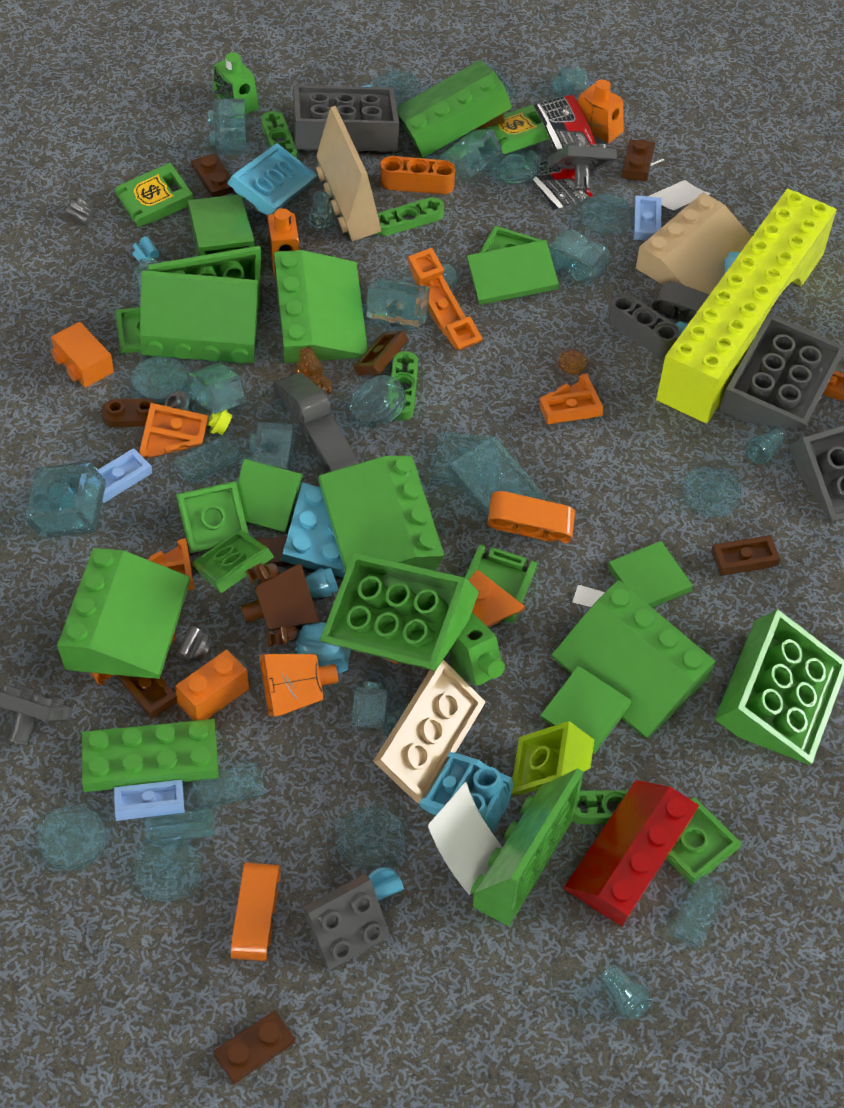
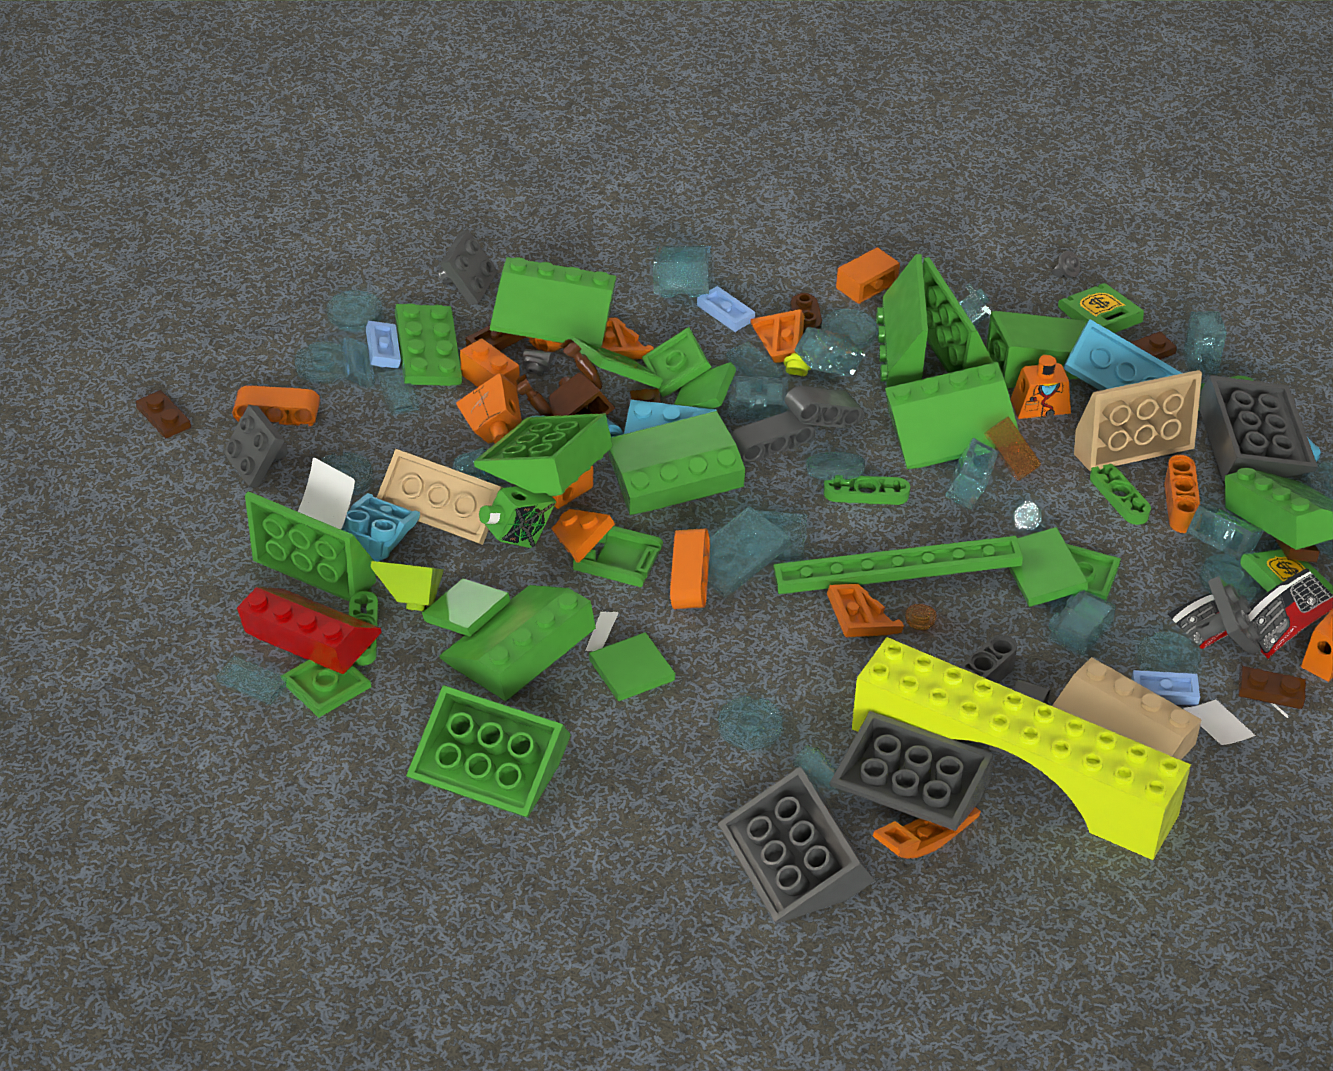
camera: 90 degrees right, 10 degrees down
(145, 249) = (1016, 304): medium azure plate -> none
(235, 81) = (1279, 348): bright green torso -> none
(312, 369) = (871, 421): clear orange plate -> none
(366, 270) = (1012, 449): none -> clear orange slope
(380, 353) = (893, 466): reddish brown plate -> none
(385, 882) = (293, 477): medium azure plate -> none
(442, 304) = (989, 512): orange slope -> none
(518, 370) = (898, 564): none -> bright green plate
(627, 994) = (173, 624): clear light blue cone -> none
(745, 555) = (660, 739): reddish brown plate -> none

